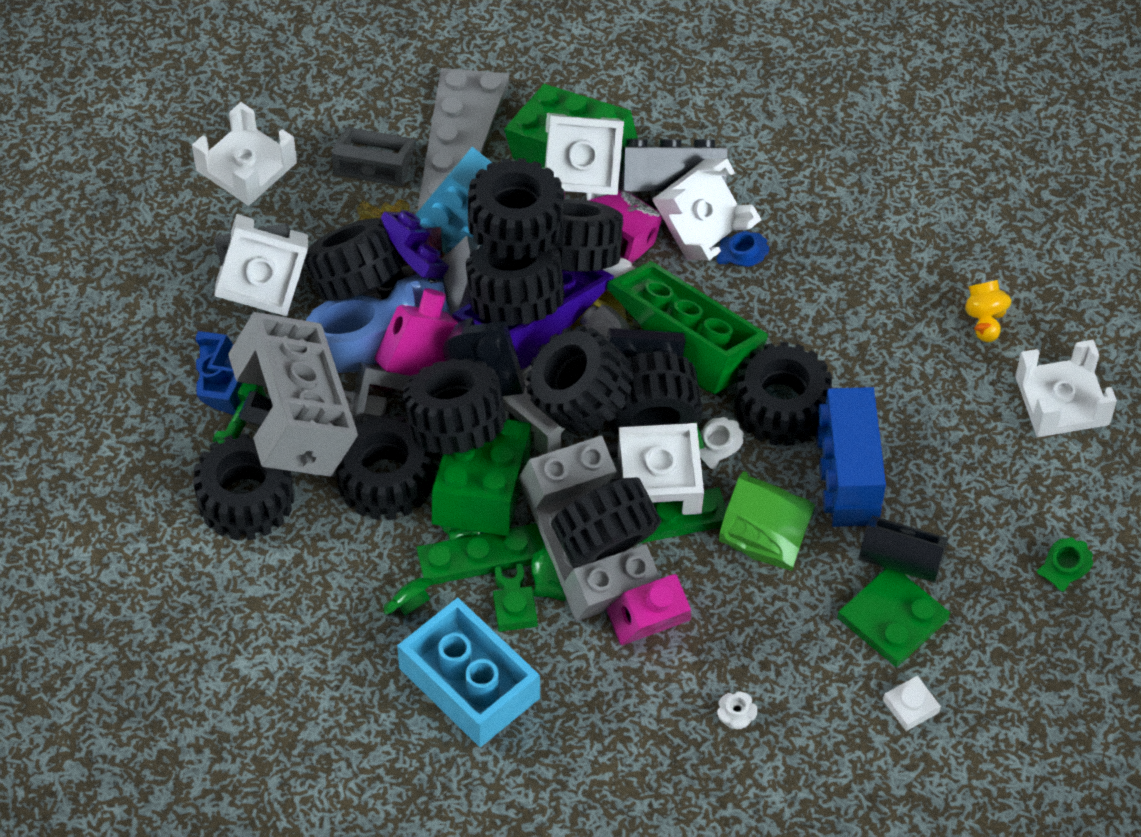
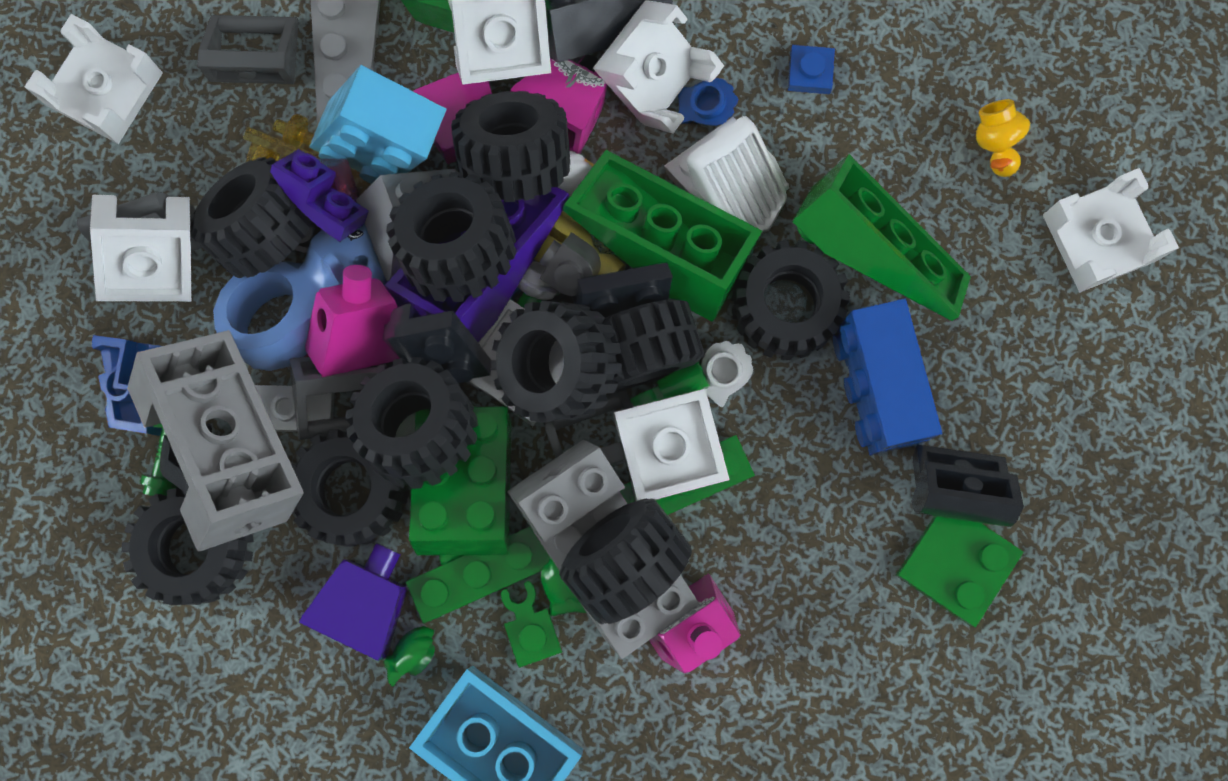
camera: 10 degrees left, 25 degrees up
(374, 554) = (360, 604): none -> dark purple torso
(537, 210) = (424, 119): black tyre -> none
(735, 719) = (806, 711): white plate -> none
(756, 292) = (733, 173): none -> white piece
(765, 522) = (799, 471): bright green slope -> none
(836, 240) = (811, 69): none -> blue plate
(853, 343) = (871, 232): none -> green slope
(911, 703) = (998, 674): white plate -> none
(1066, 562) = (1141, 459): green animal -> none

